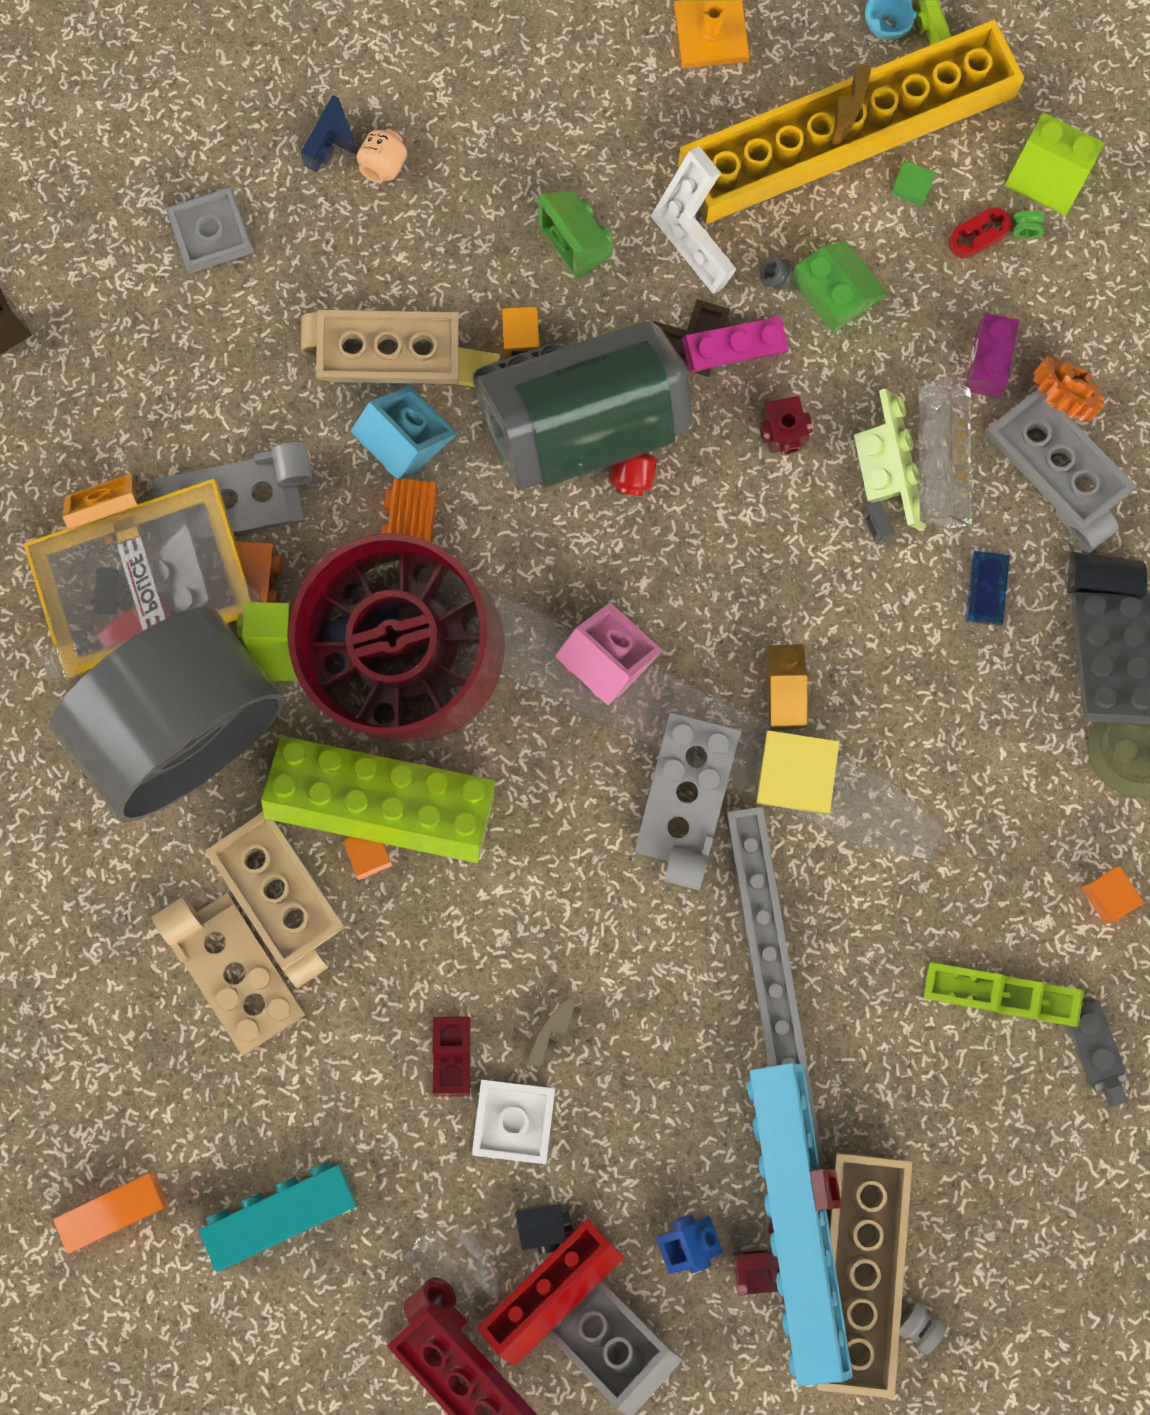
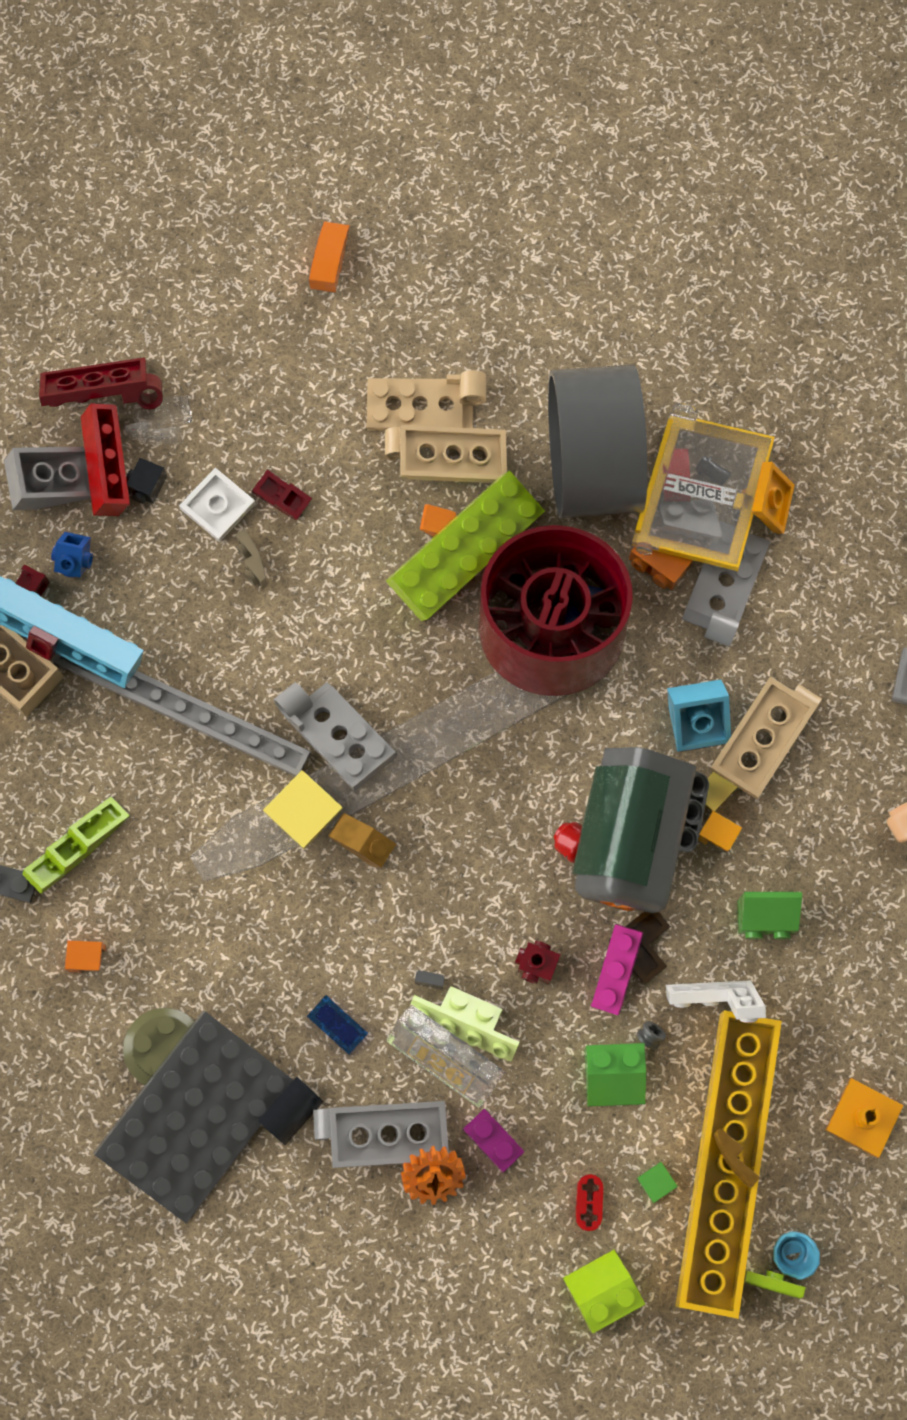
camera: 125 degrees right, 5 degrees down
(266, 638) = (614, 529): lime brick -> none
(279, 1216) = (260, 341): teal brick -> none
(411, 508) = (637, 681): orange brick -> none
(608, 653) = (461, 741): bright pink slope -> none
(1028, 224) = (571, 1241): bright green bush -> none

